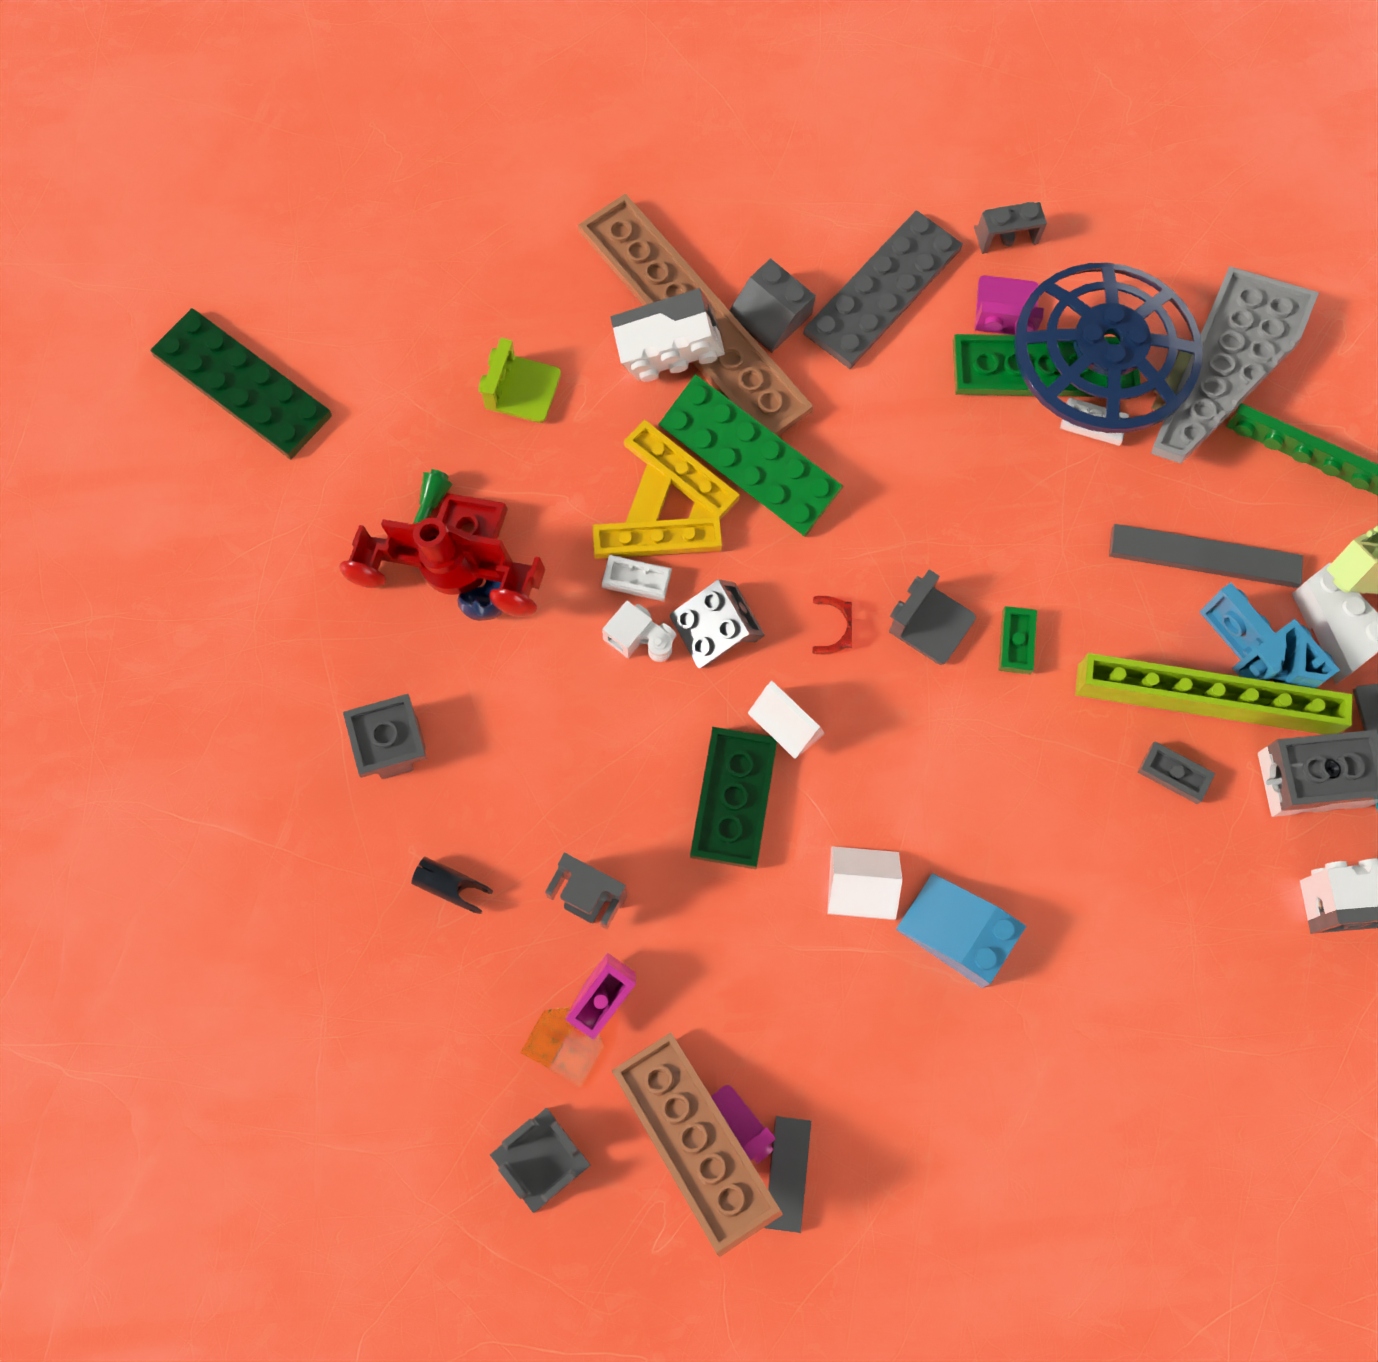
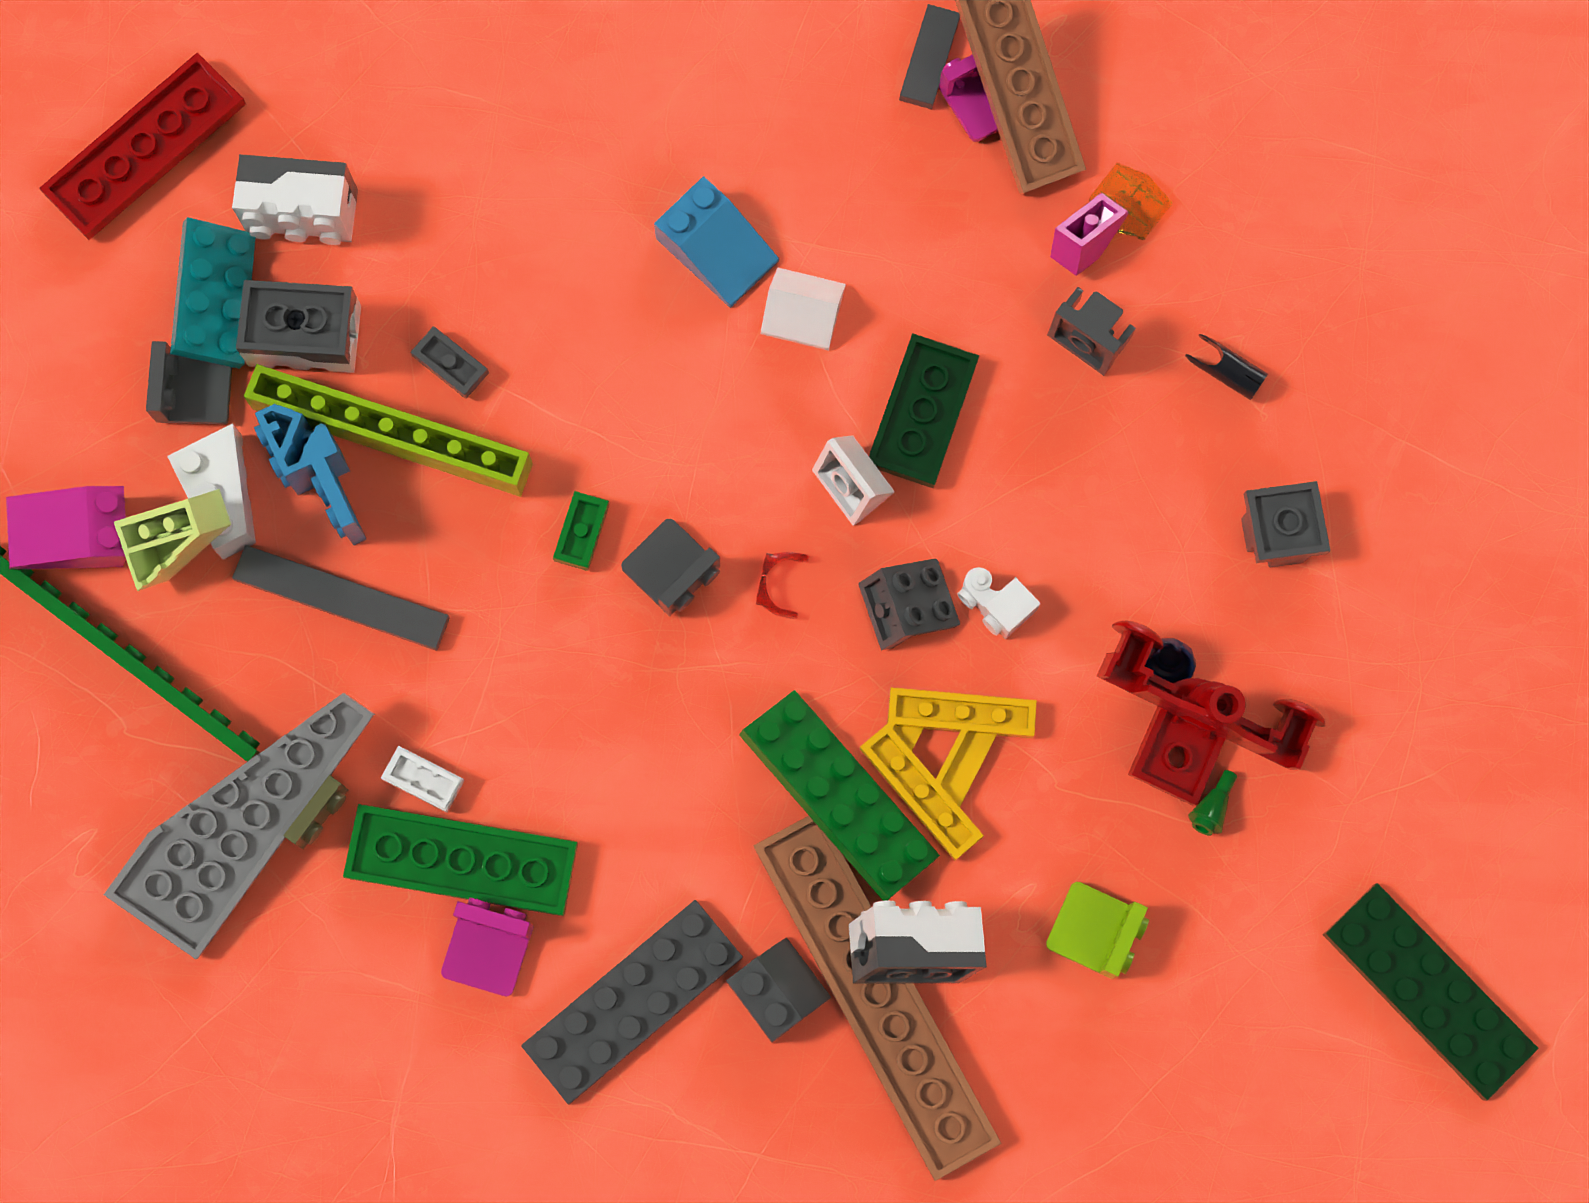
camera: 170 degrees left, 5 degrees up
(539, 1160) = (1164, 102): dark grey panel -> none
(636, 578) = (991, 668): white plate -> none
(1008, 220) = (456, 1059): dark grey window -> none
(1104, 357) = (403, 868): dark blue dish -> none

